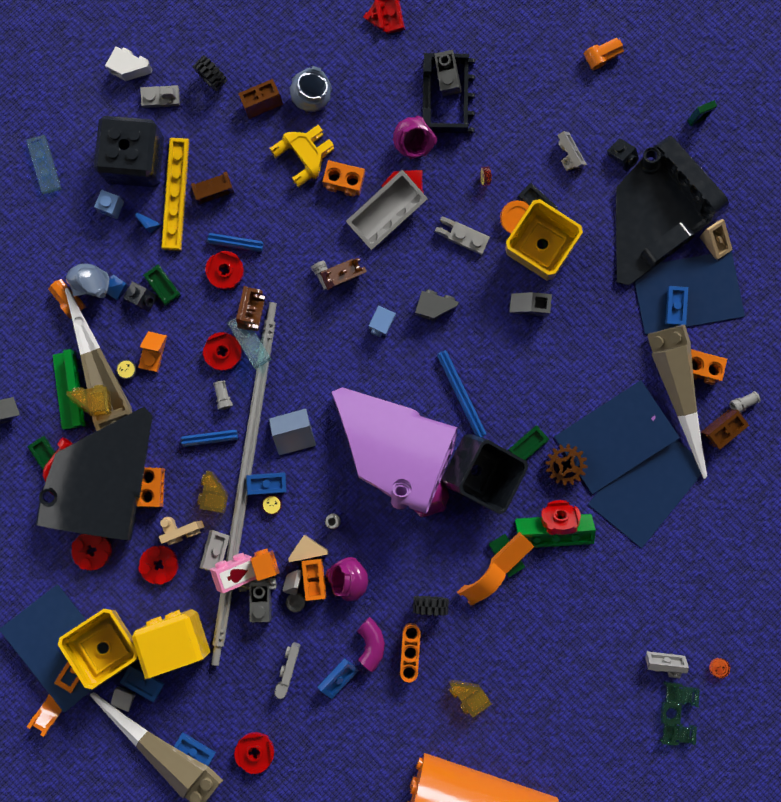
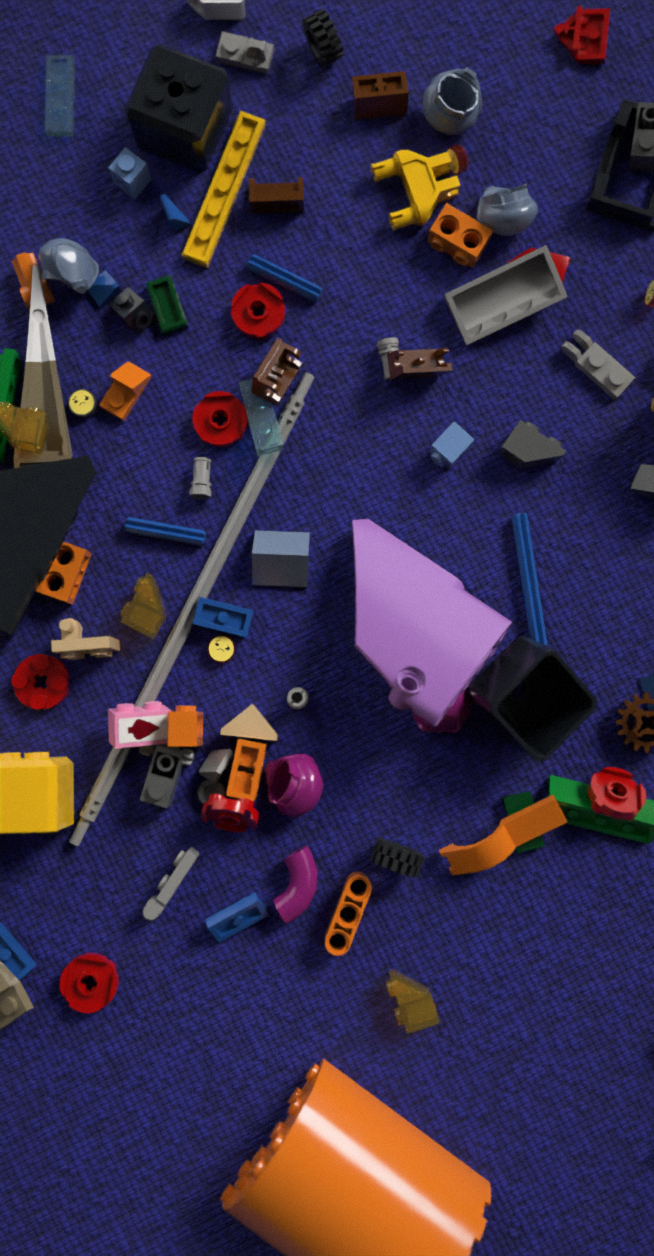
camera: 20 degrees right, 0 degrees up
(214, 549) = (123, 684): light grey hinge -> none
(312, 612) = (230, 814): none -> red plate
(326, 126) = (459, 159): none -> clear red tile
(369, 151) = (507, 210): none -> sand blue helmet
(413, 137) = (574, 209): magenta helmet -> none
(529, 443) = (605, 675): dark green tile -> none

